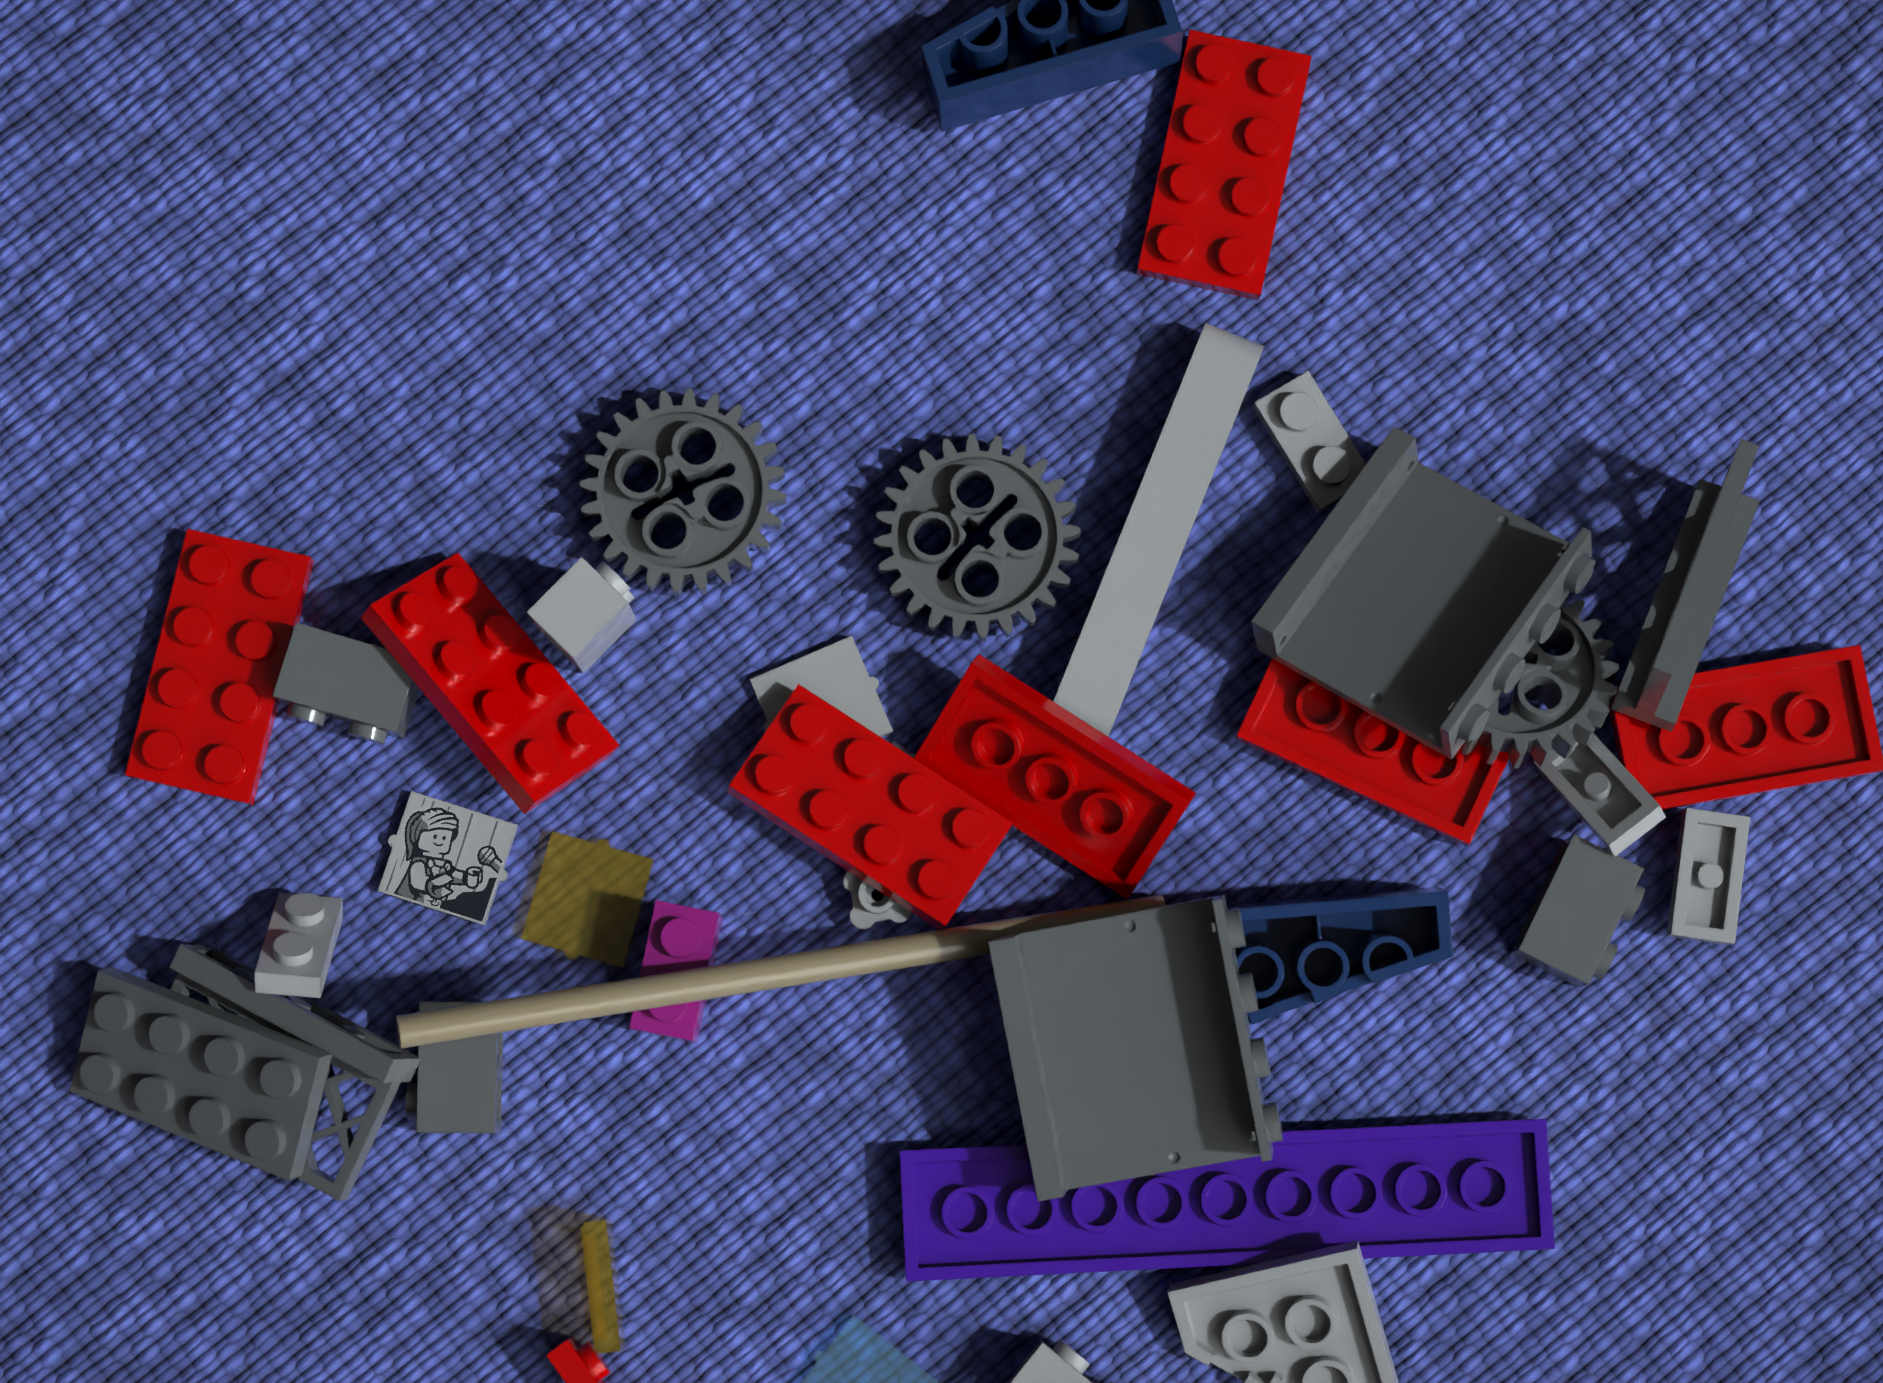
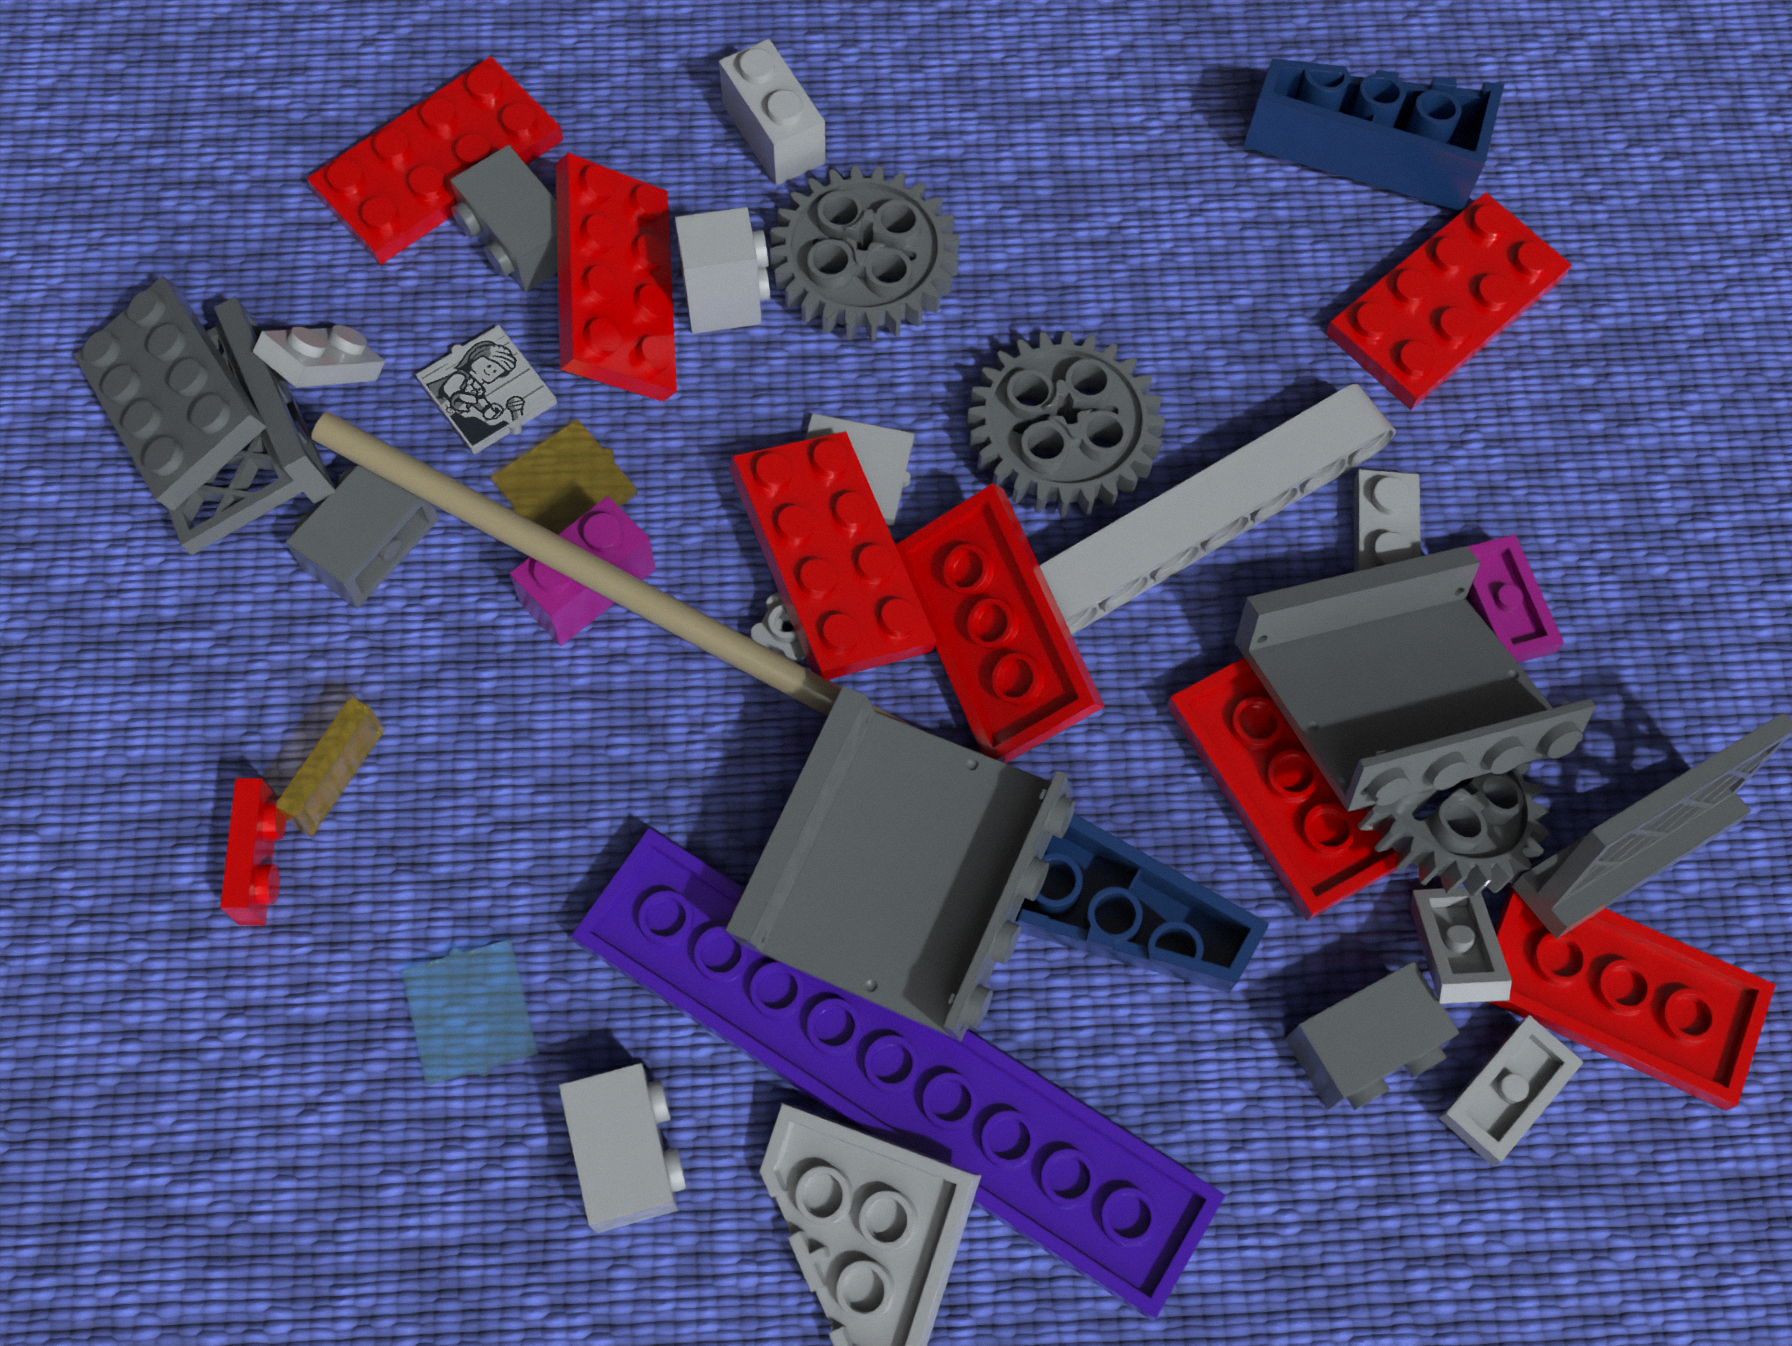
camera: 35 degrees right, 15 degrees down
(496, 407) = (772, 112): none -> light grey brick
(1455, 440) = (1511, 600): none -> magenta plate

